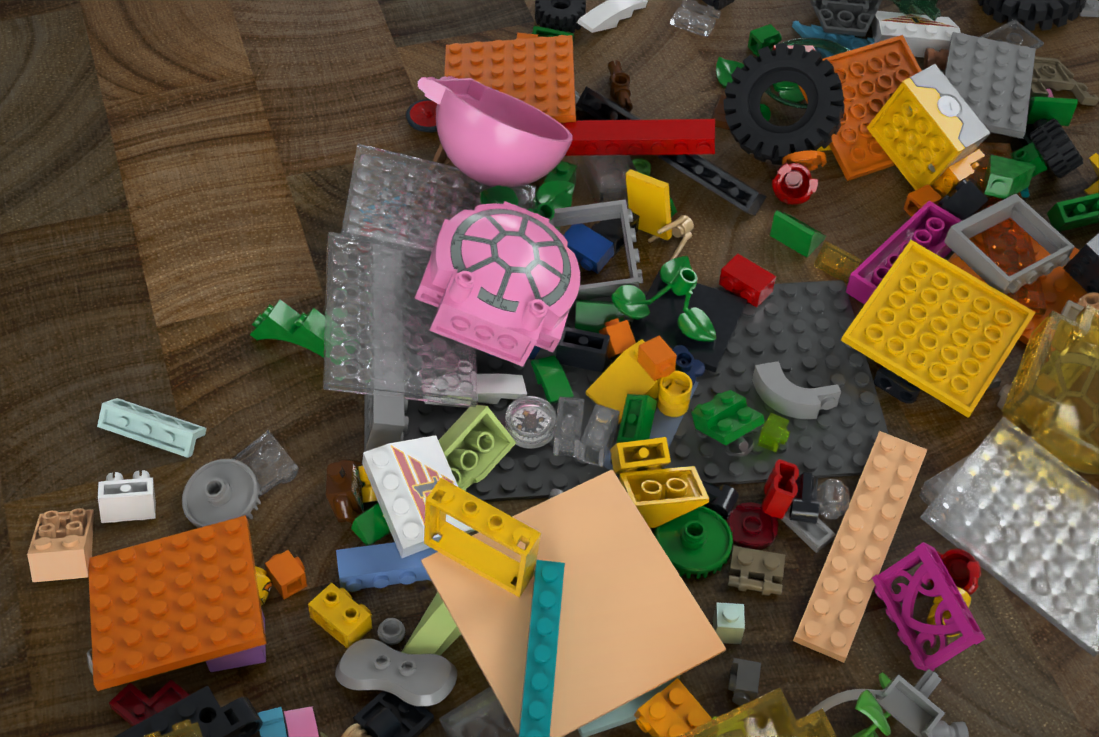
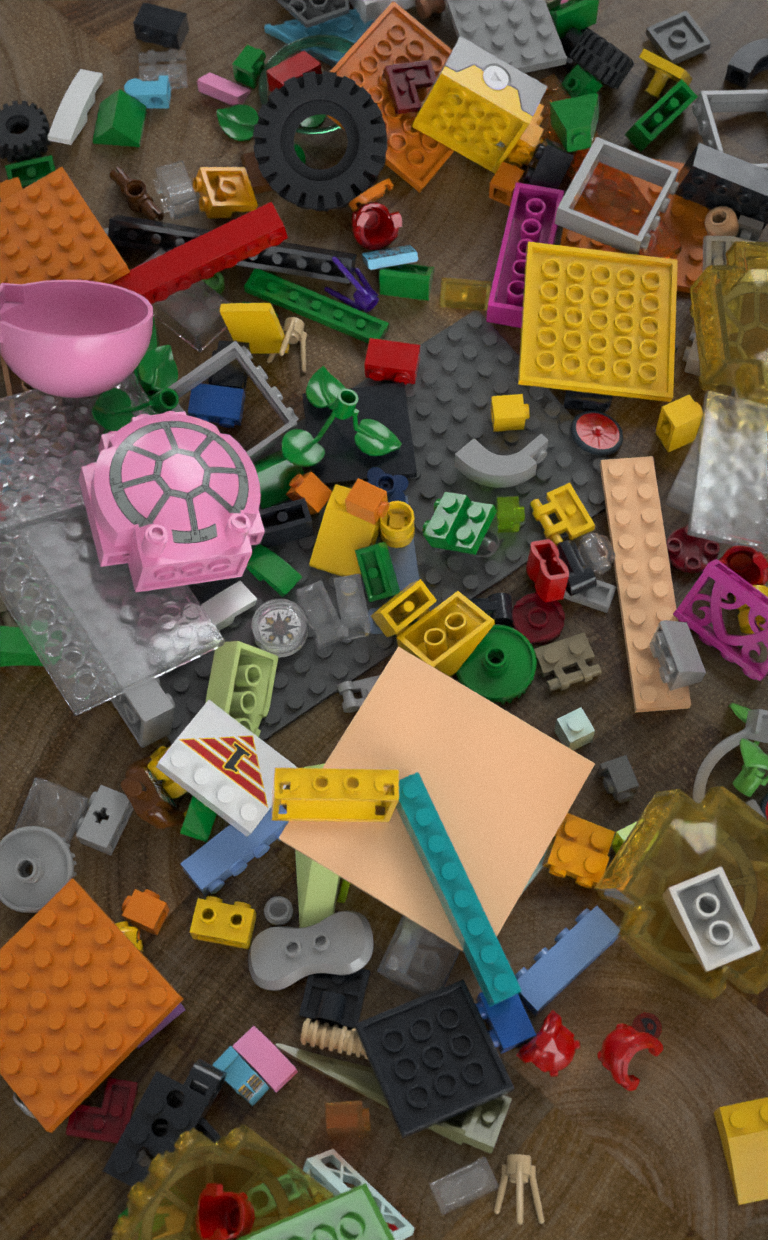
camera: 25 degrees left, 15 degrees up
(300, 492) = (106, 834): none -> light grey brick
(452, 648) = (342, 892): none -> lime leg
(641, 35) = (120, 121): none -> green slope
(652, 96) = (177, 191): none -> clear brick
(674, 26) = (150, 93): none -> medium azure leg
(688, 105) = (224, 191): none -> light orange plate
(710, 218) = (315, 306): none -> green plate
(731, 47) = (222, 89): none -> bright pink slope
(754, 230) = (364, 296): none -> dark purple plant
(792, 209) = (390, 257): none -> medium azure tile
(821, 360) = (508, 412): none -> yellow brick
(828, 455) = (568, 509): none -> yellow plate
(854, 604) = (676, 655): none -> light grey slope
(875, 94) = (404, 80): none -> dark red plate
(889, 412) = (596, 432): none -> wheel
(916, 531) = (690, 552): none -> dark red dish
(965, 433) = (679, 423): none -> yellow brick

